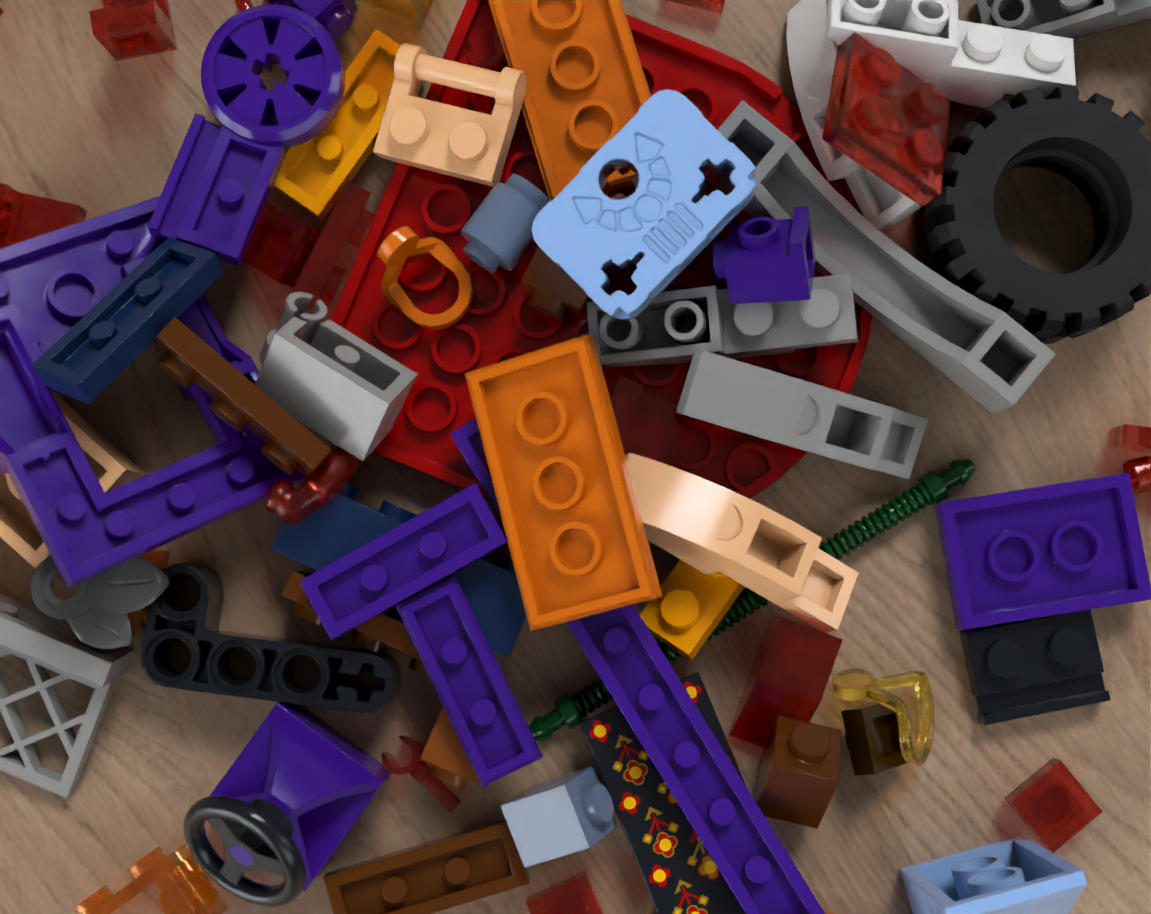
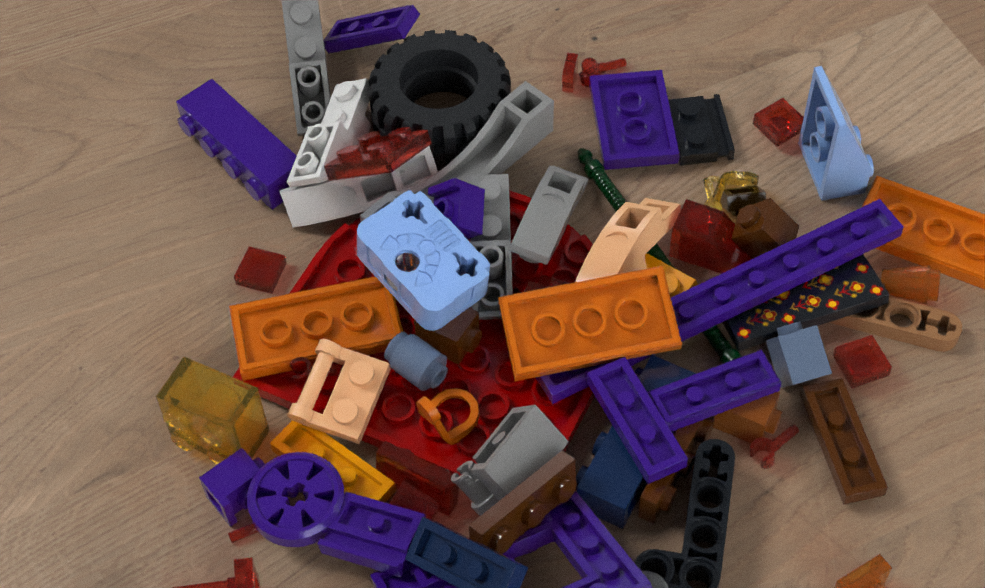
camera: 85 degrees left, 30 degrees down
(283, 806) = (796, 506): dark purple piece -> none
(318, 488) = (595, 482): clear red arm -> none

